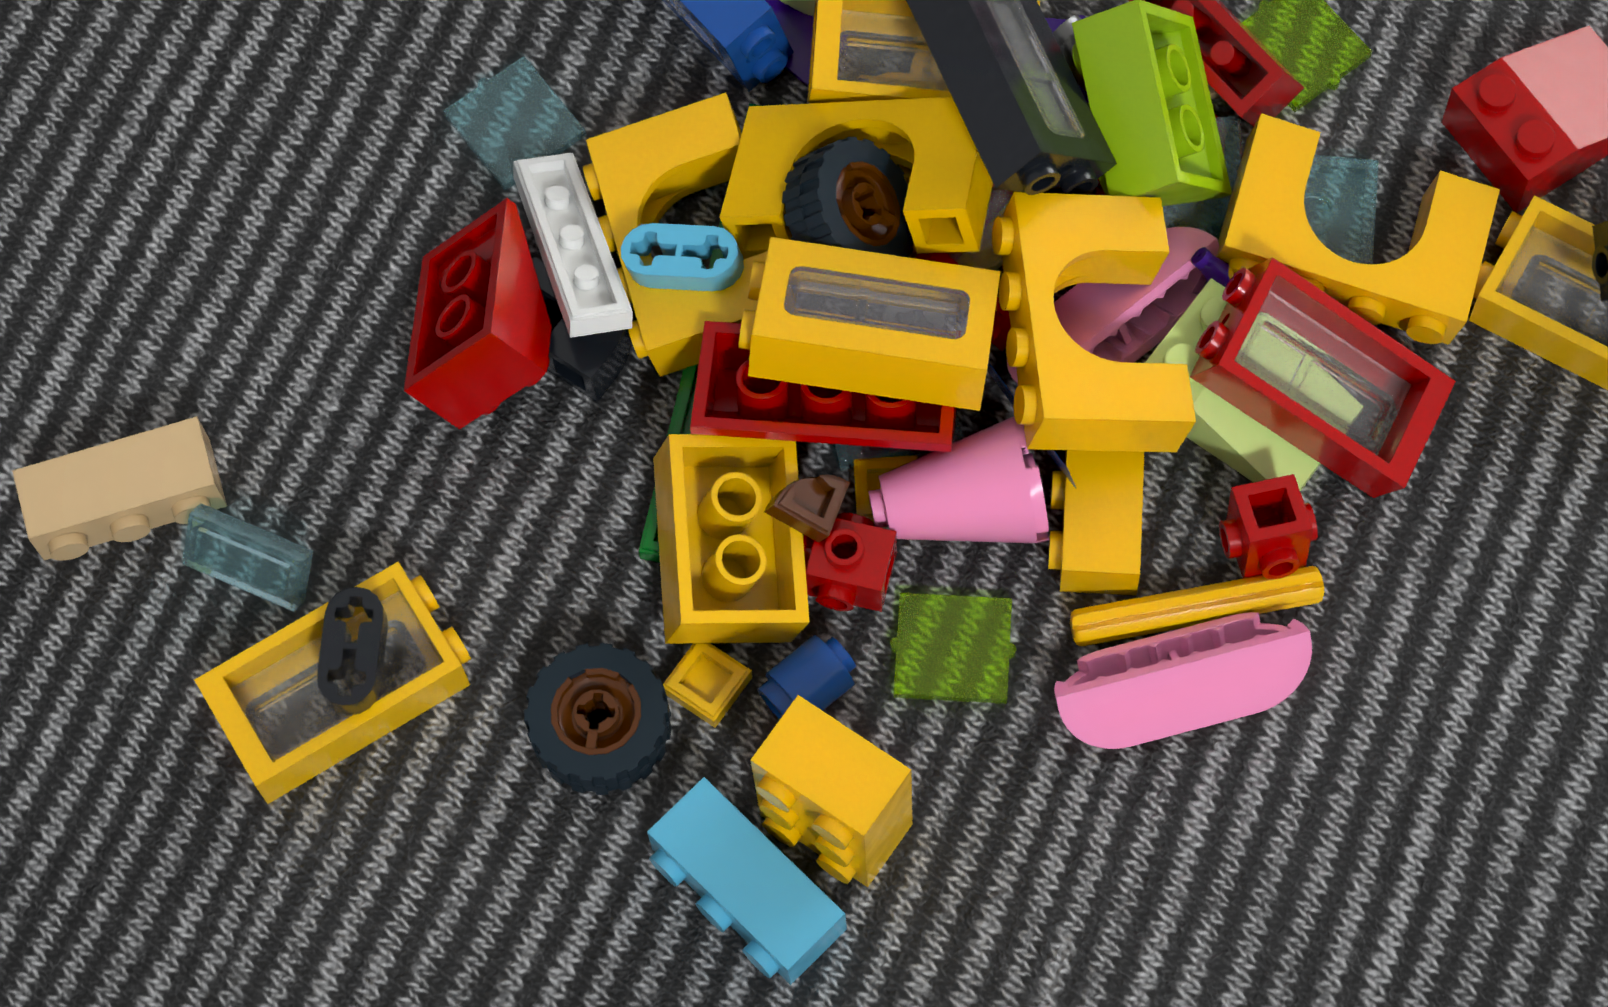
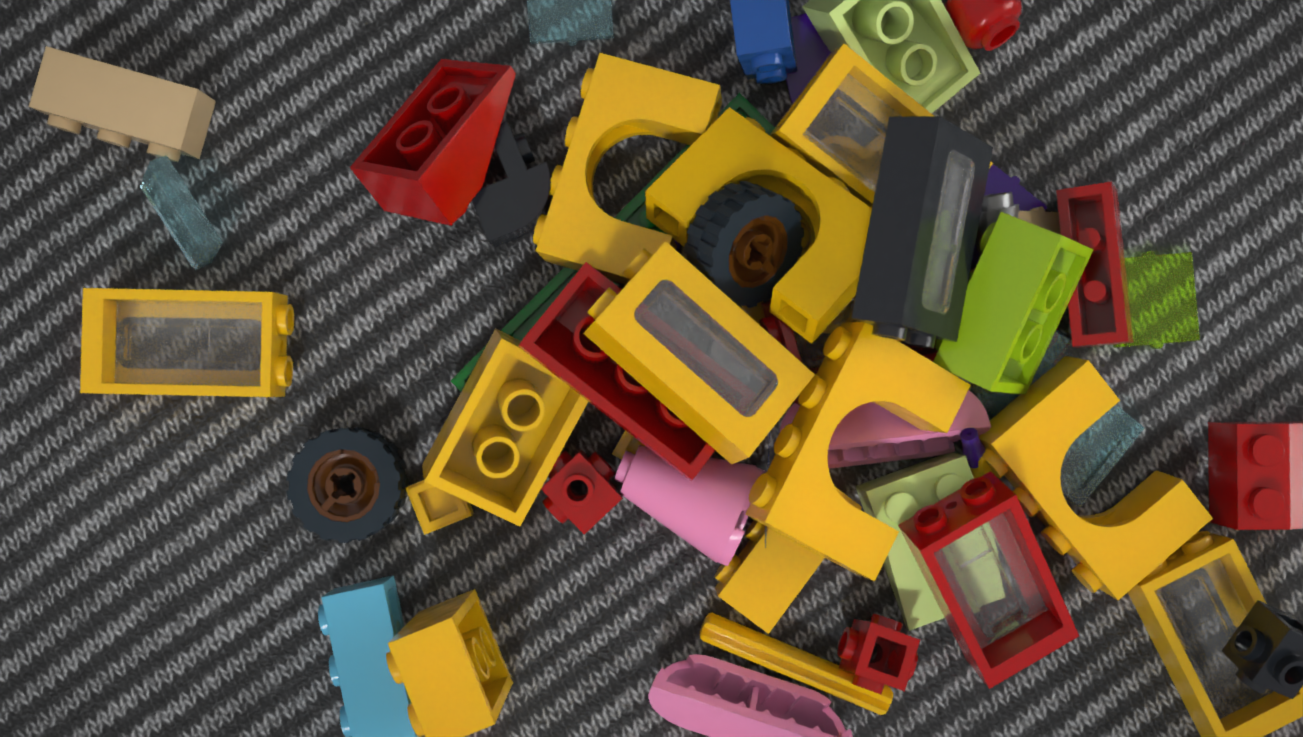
camera: 30 degrees right, 20 degrees up
(338, 649) = (187, 334): black beam -> none
(572, 245) = (538, 131): white tile -> none
(681, 259) = (611, 190): medium azure beam -> none
(810, 505) = (573, 445): reddish brown tile -> none
(812, 671) = (501, 550): blue brick -> none
(953, 648) = (617, 582): clear neon green piece -> none

